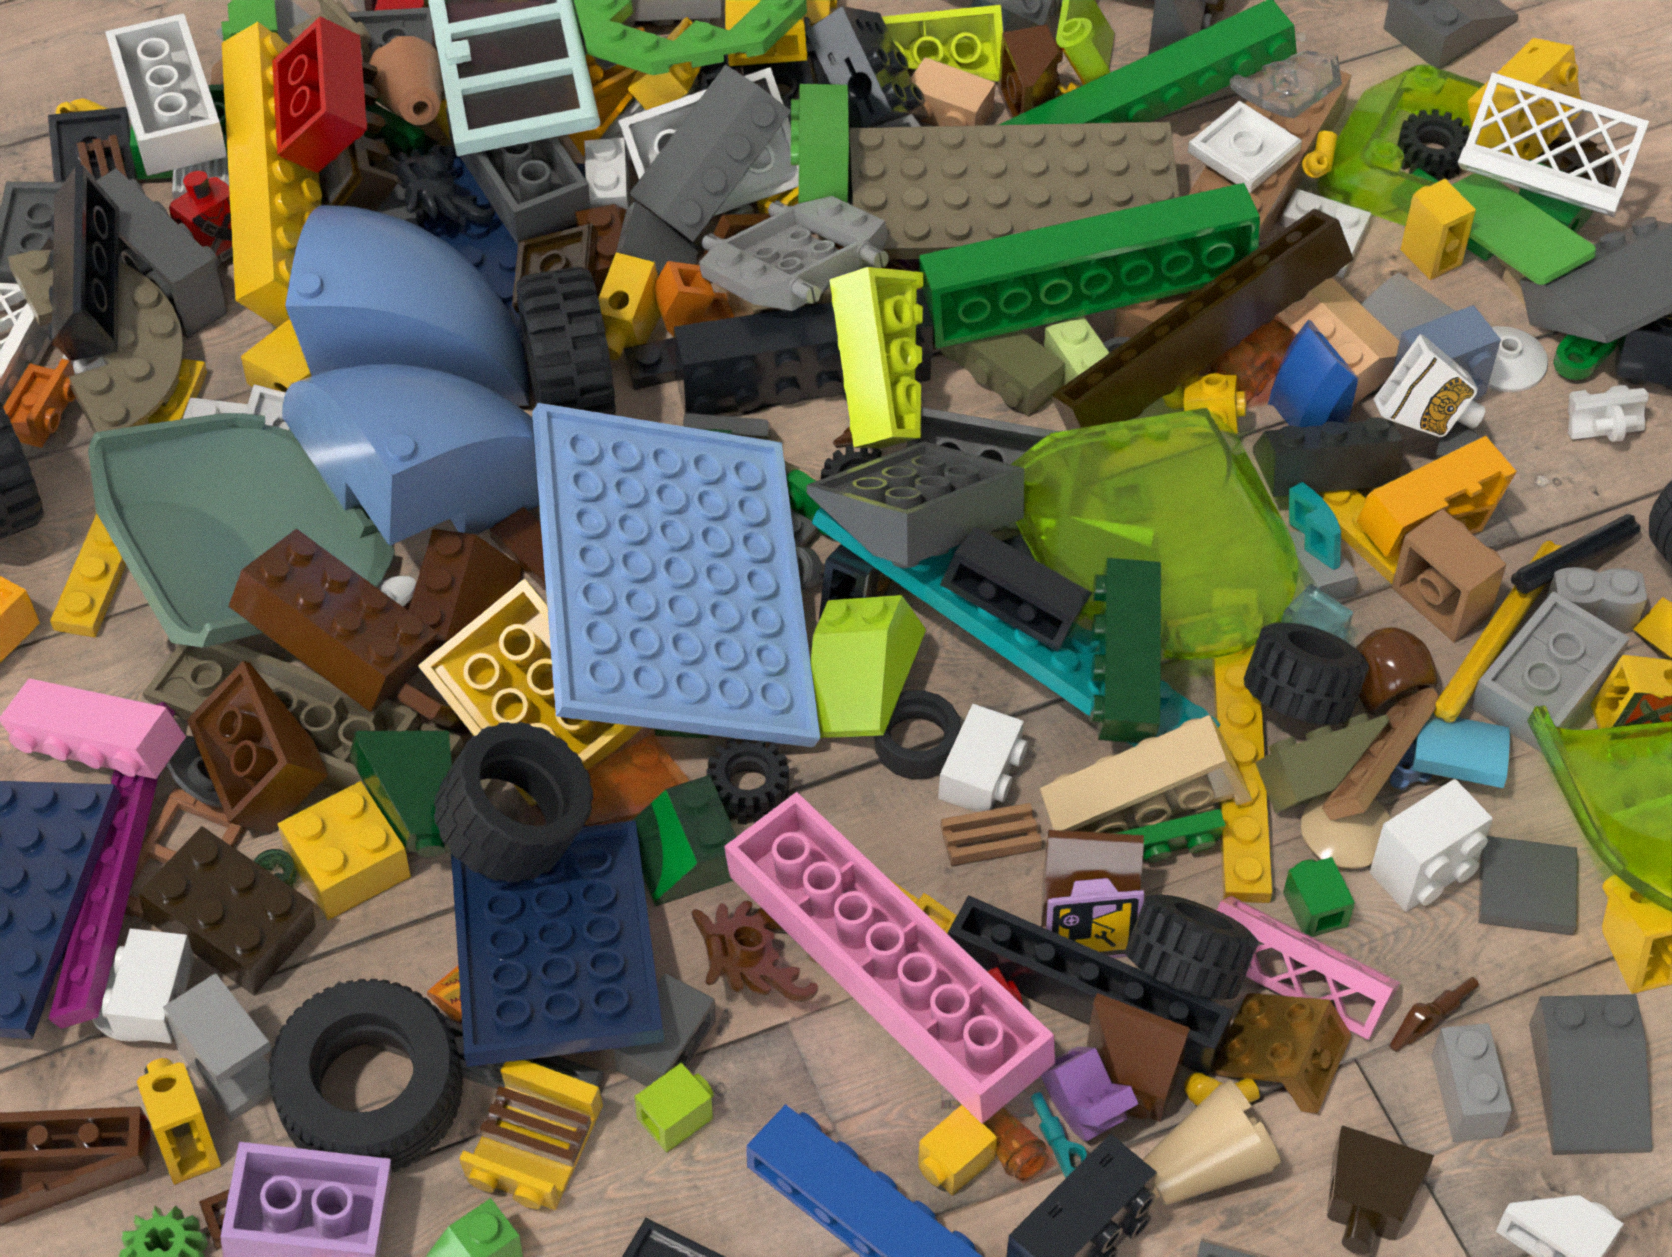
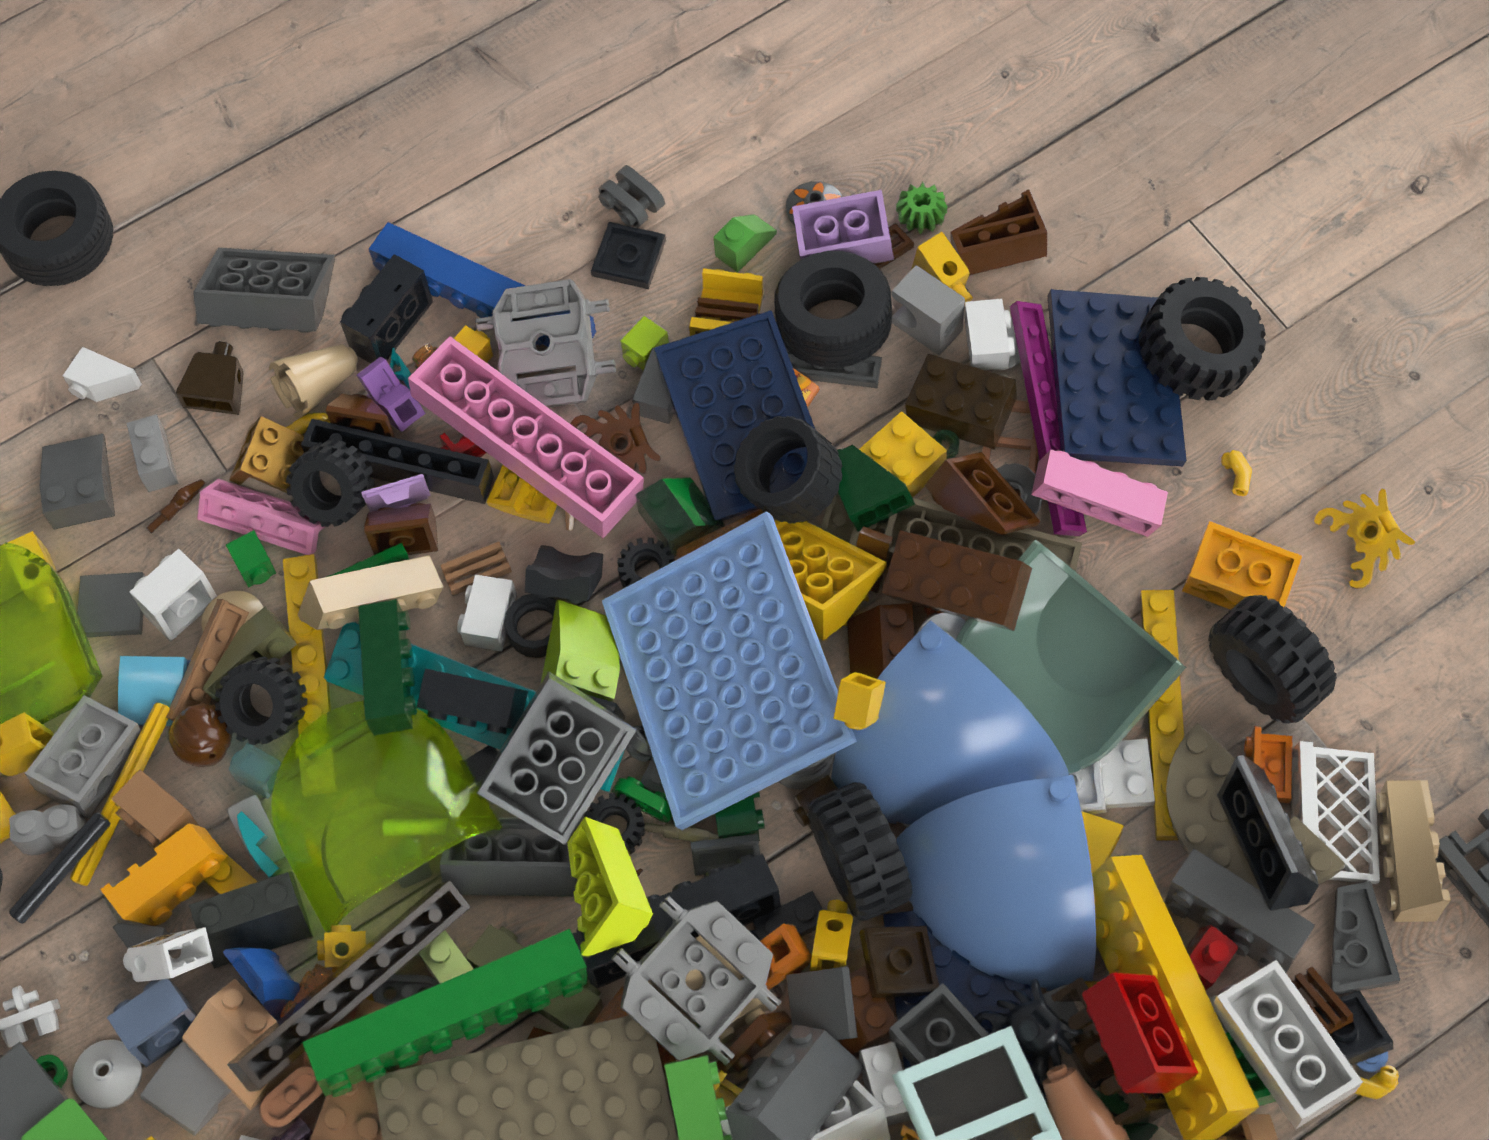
camera: 175 degrees right, 10 degrees up
(514, 416) = (859, 700): none -> yellow brick
(792, 1087) = (568, 336): none -> light grey piece
(865, 771) = (563, 575): none -> black brick

